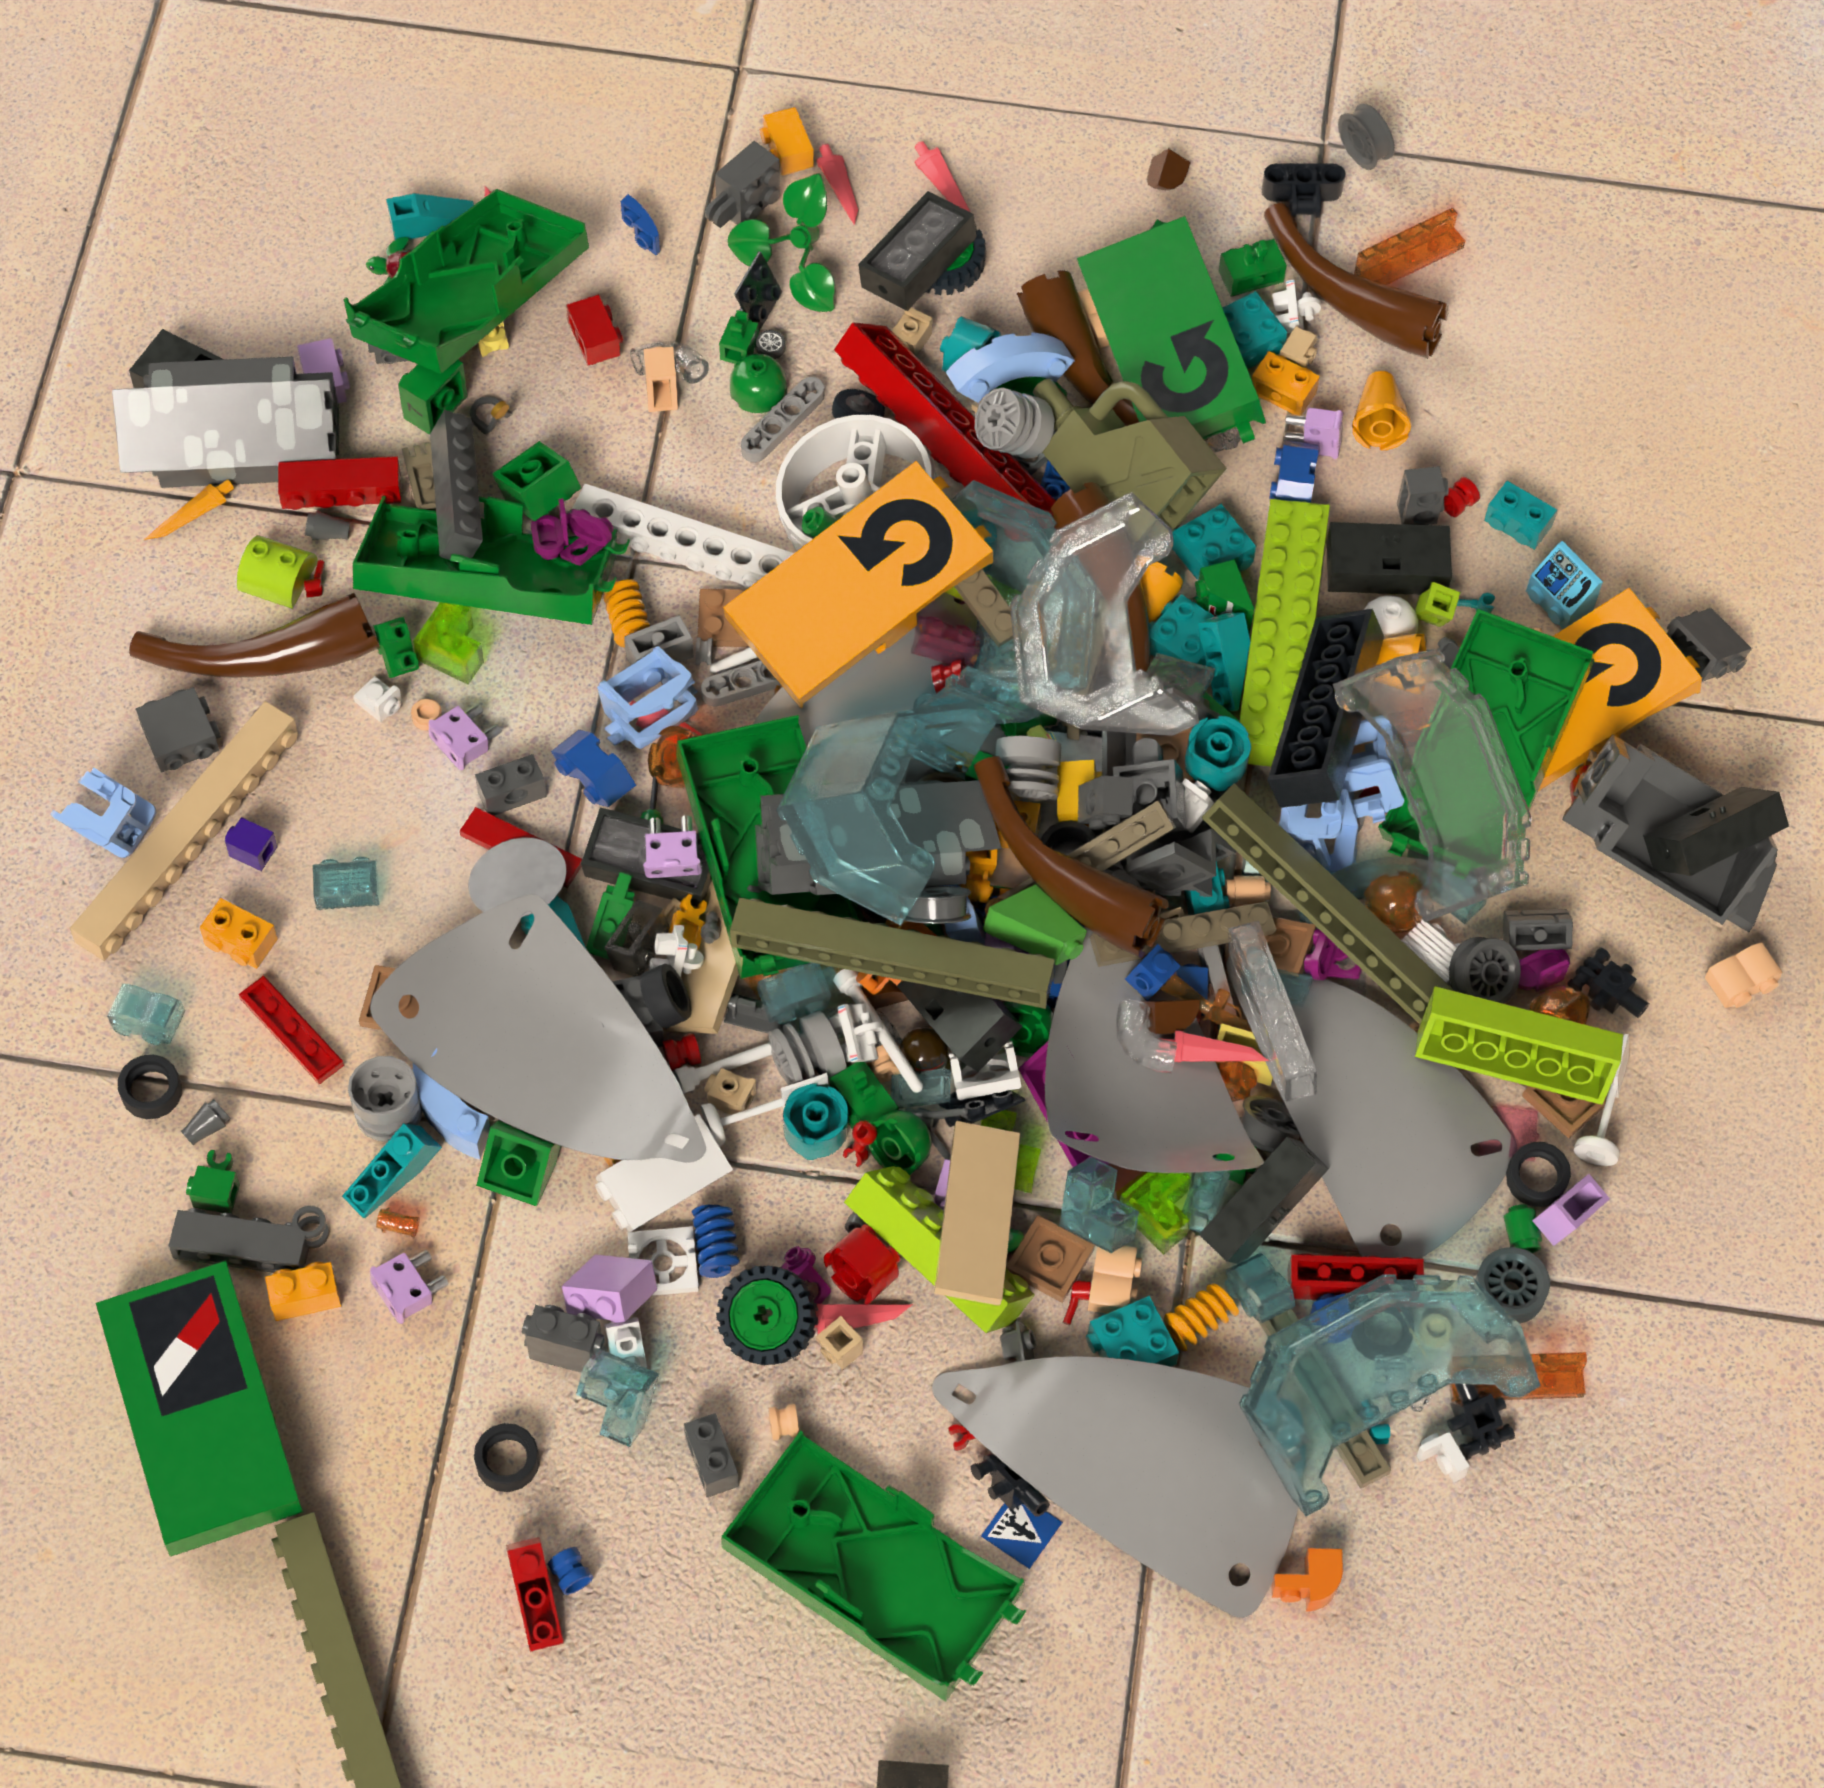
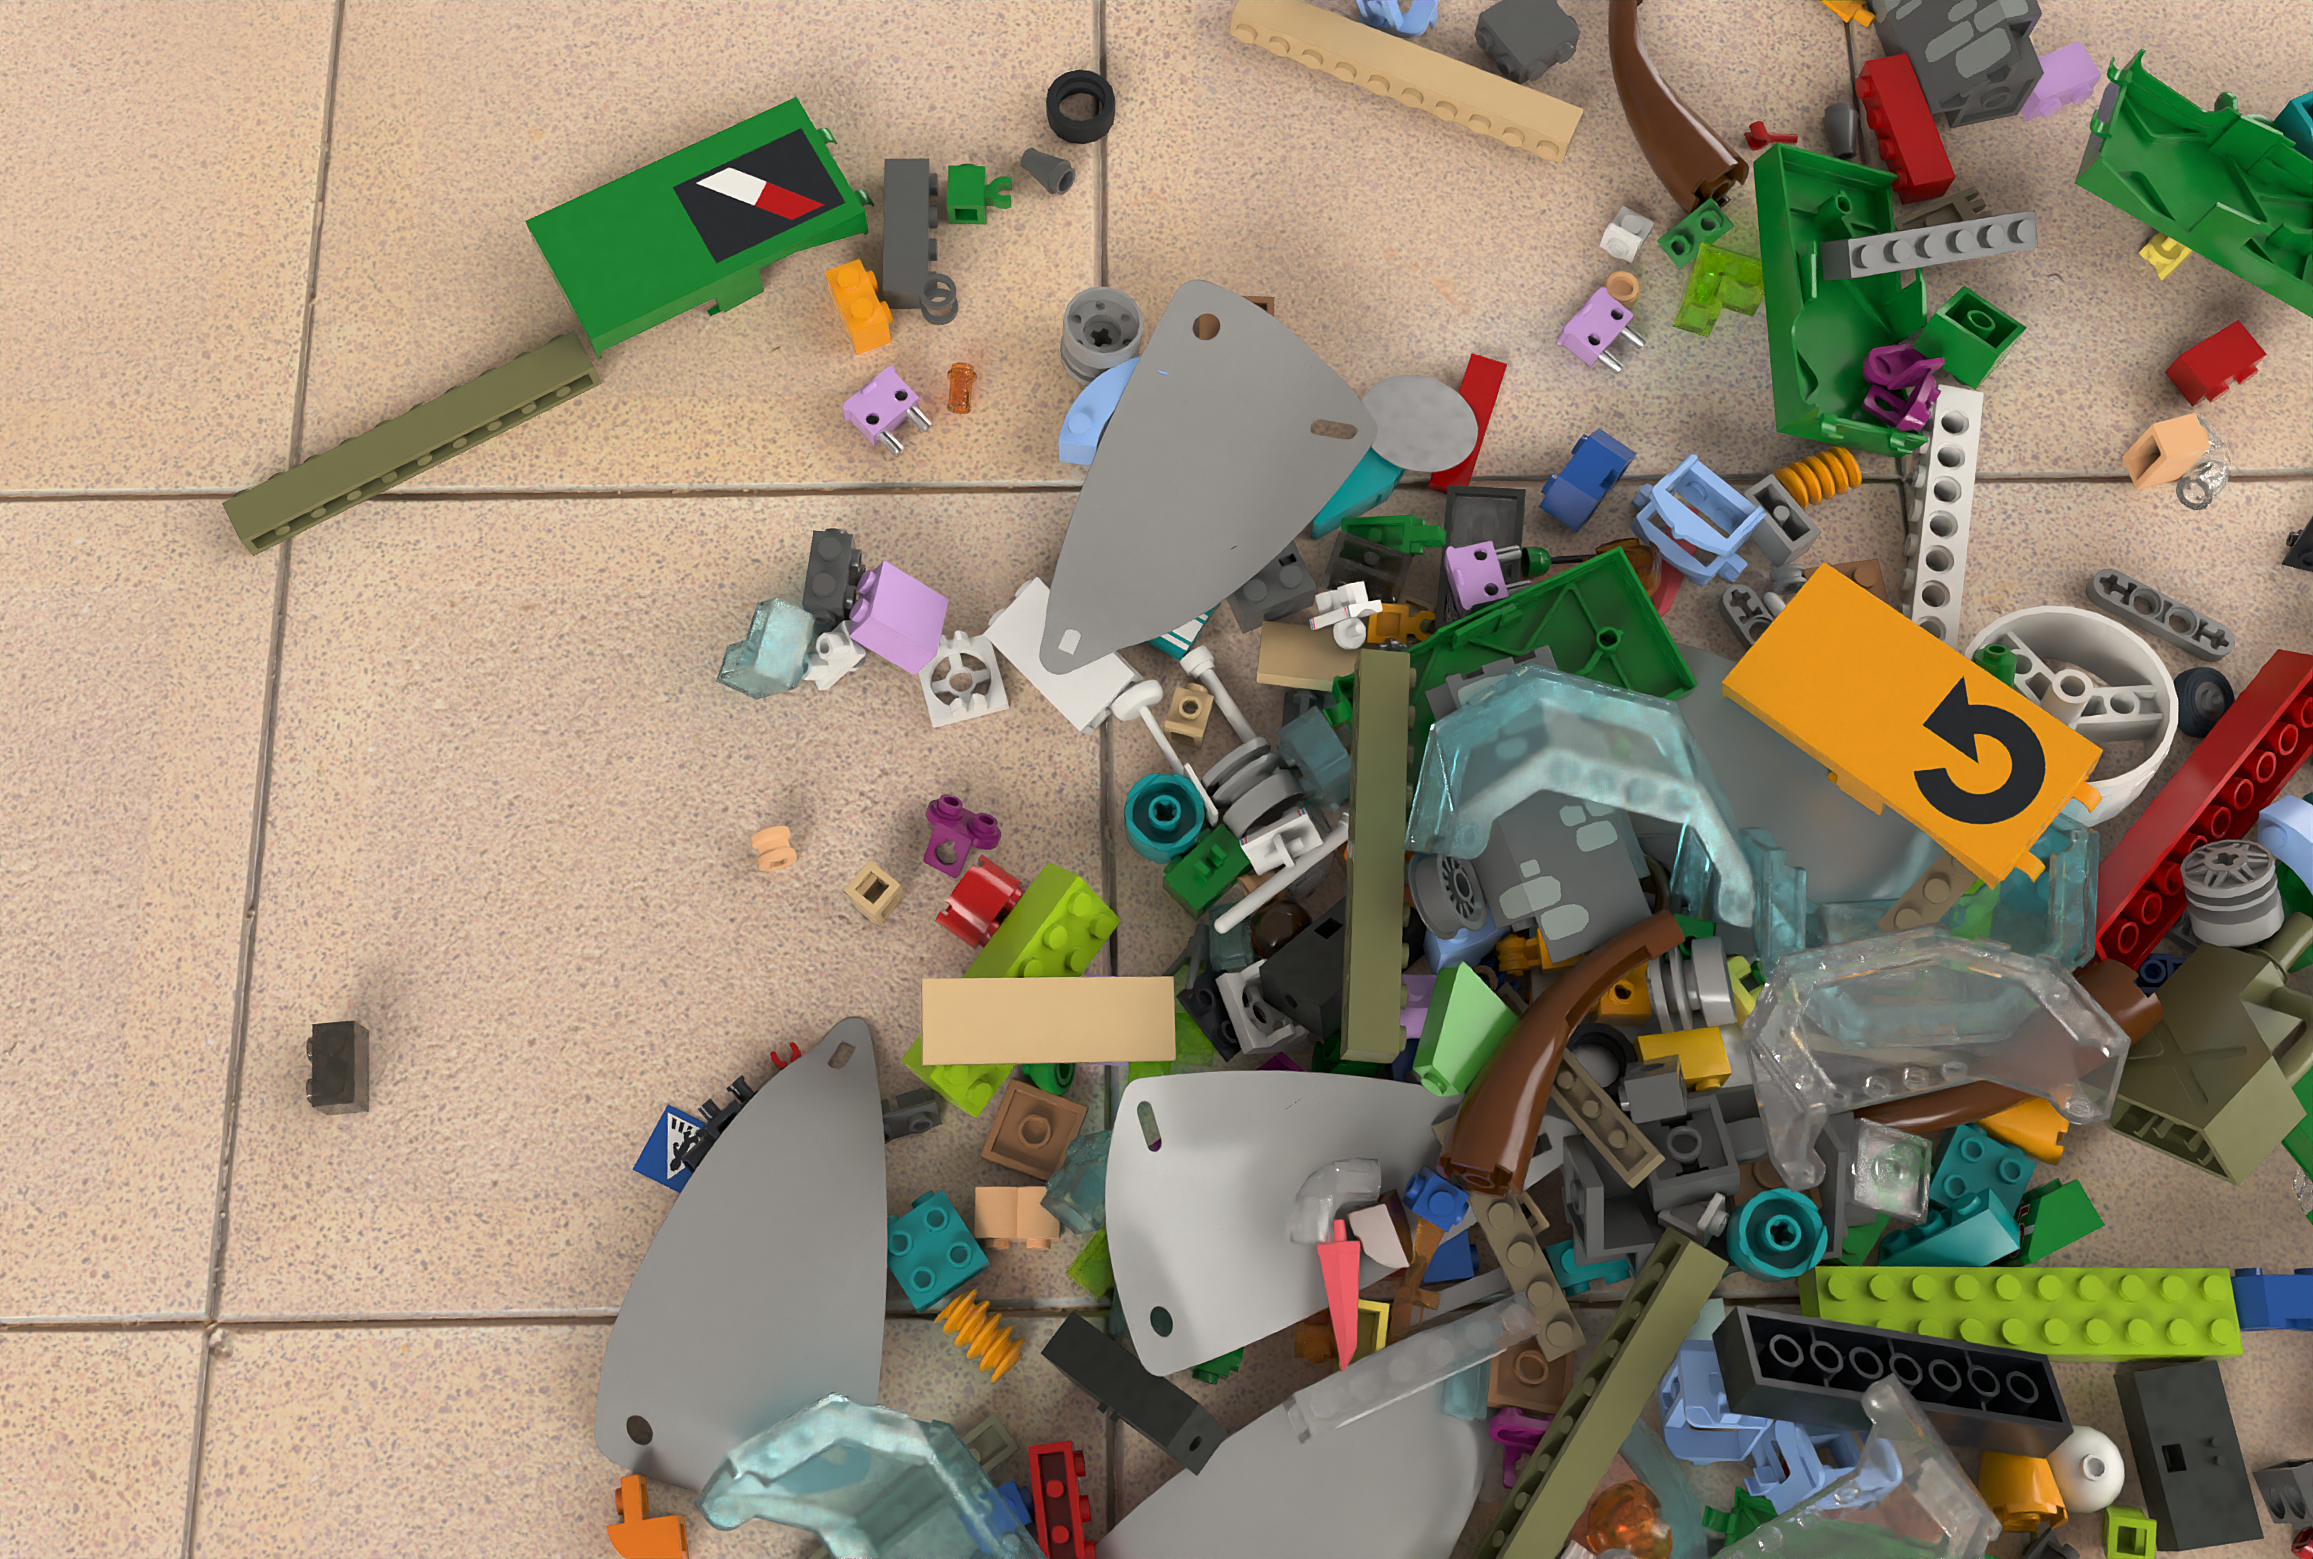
camera: 80 degrees right, 10 degrees up
(145, 1014) = (1166, 82): clear light blue brick -> none
(238, 934) = (1284, 152): light orange brick -> none
(250, 844) = (1401, 140): dark purple brick -> none
(274, 570) = (1768, 88): lime brick -> none
(291, 1030) = (1180, 233): red tile -> none
(346, 883) = (1373, 246): clear light blue brick -> none
(392, 1168) = (1026, 368): teal slope -> none
(428, 393) = (2060, 206): green brick -> none
(498, 411) = (2059, 276): dark grey piece -> none
(500, 1433) = (691, 528): black tyre -> none
(511, 785) = (1542, 394): dark grey brick -> none
(517, 1163) = (1049, 494): green slope -> none
(534, 1594) = (538, 612): red slope -> none
(570, 1570) = (571, 640): blue wheel -> none
(665, 995) = (1278, 591): black tyre -> none
(681, 1052) = (1230, 650): red wheel -> none
(711, 1455) = (719, 773): dark grey brick -> none
(714, 1240) = (991, 730): blue piece -> none
(738, 338) = (2260, 539): green brick -> none
(746, 1303) = (896, 803): wheel -> none
(758, 383) = (2204, 574): green cylinder -> none
(770, 343) = (2269, 581): dark grey tile -> none
(857, 1314) = (922, 898): coral bar -> none
(863, 1135) = (1148, 875): red arm -> none
(873, 1566) = (604, 983): green piece -> none
(901, 1141) = (1158, 925): green cylinder -> none
(941, 673) = (1820, 876): red wheel -> none
(945, 641) = (1867, 857): clear pink brick -> none
(1080, 1291) = (997, 1174): red hand -> none
(1213, 540) = (2136, 1200): teal brick -> none
(1247, 890) = (1600, 1310): light nougat brick -> none
(1259, 1288) = (1028, 1407): clear light blue brick -> none
(1267, 1122) = (1253, 1383): dark grey wheel -> none

